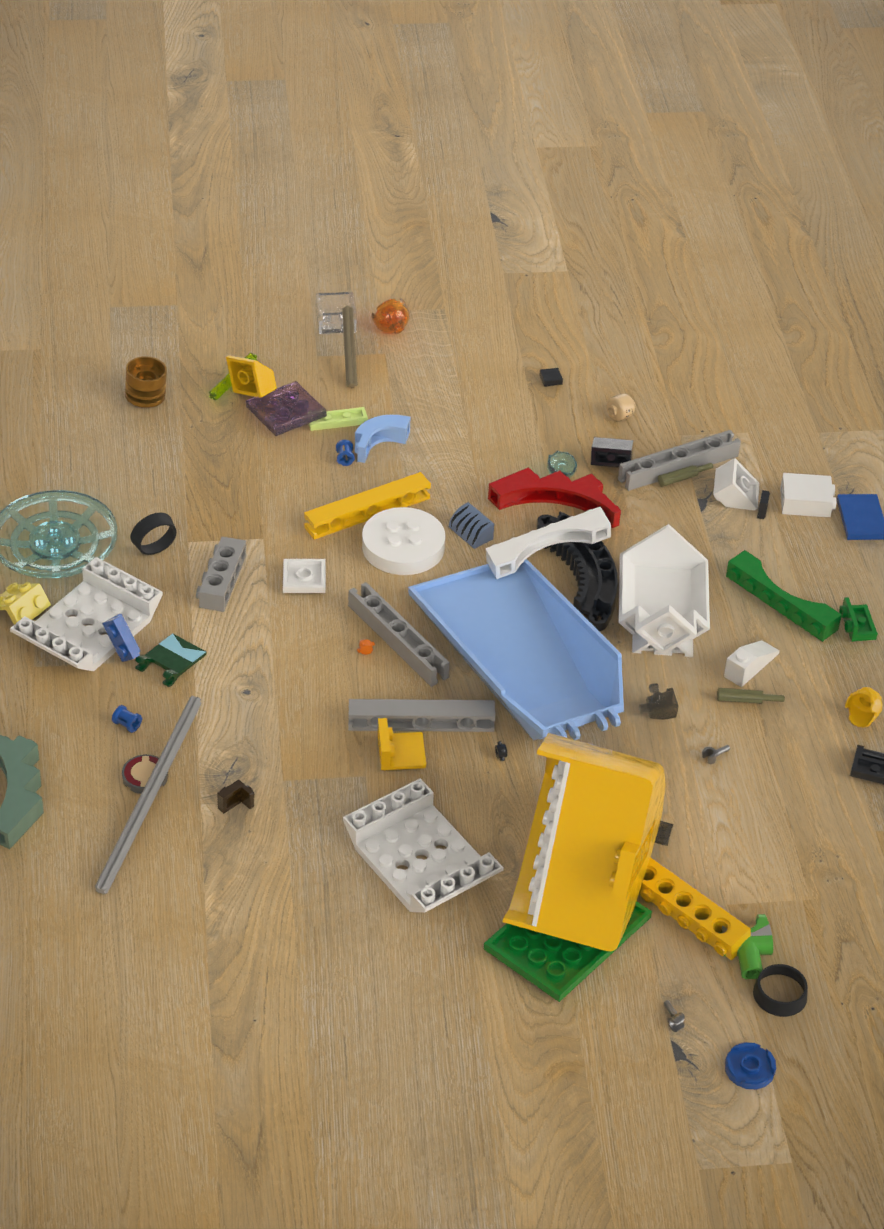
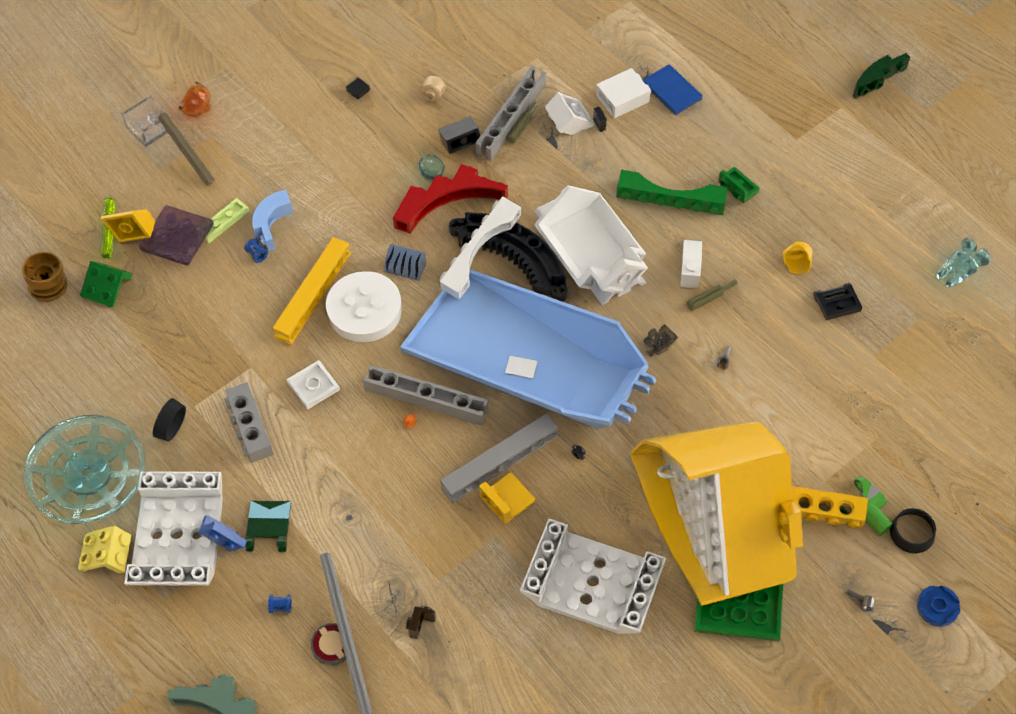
camera: 30 degrees left, 15 degrees up
(191, 412) = (103, 283): none -> green bracket
(508, 659) = (521, 367): none -> white sticker

